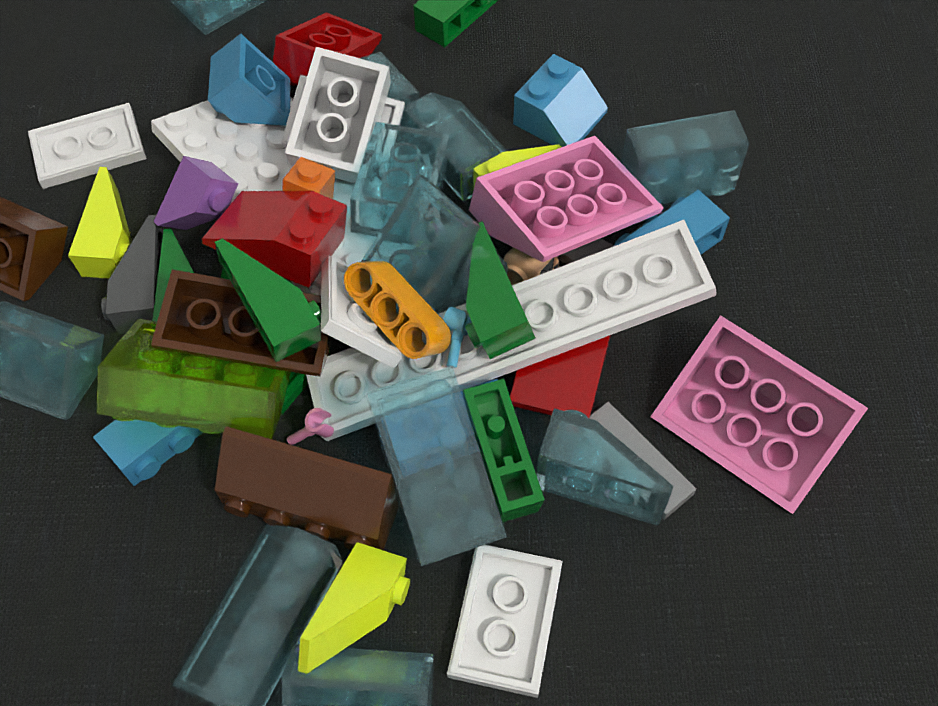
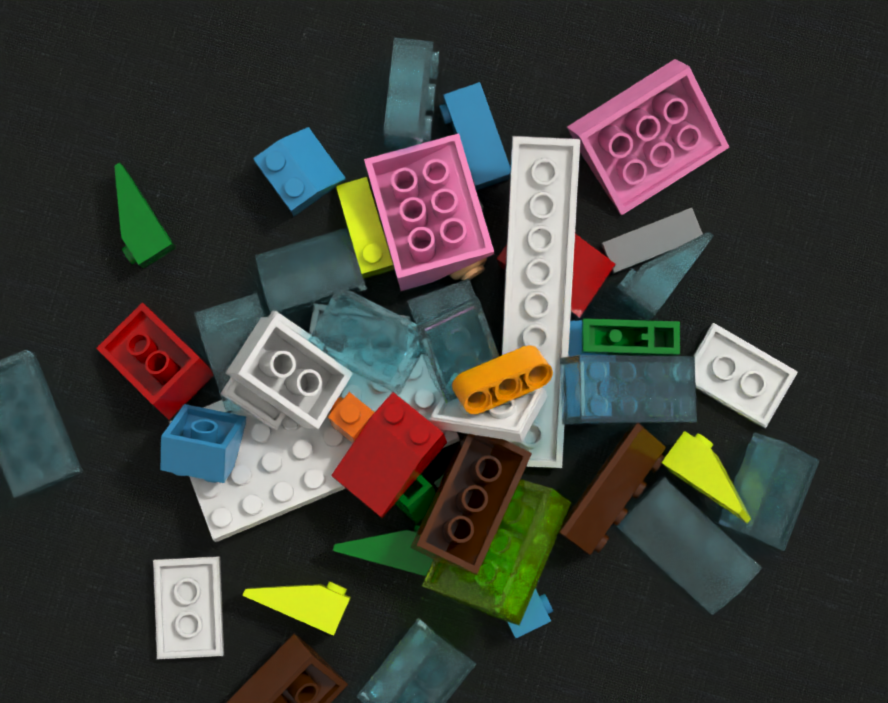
camera: 75 degrees left, 25 degrees up
(134, 281) = (375, 584): dark grey slope -> none
(195, 195) = (319, 513): medium lavender slope -> none
(274, 304) = (482, 471): green slope -> none
(313, 426) = (556, 471): bright pink hand -> none
(456, 321) = (523, 335): medium azure hand -> none
(492, 302) = (525, 304): green slope -> none

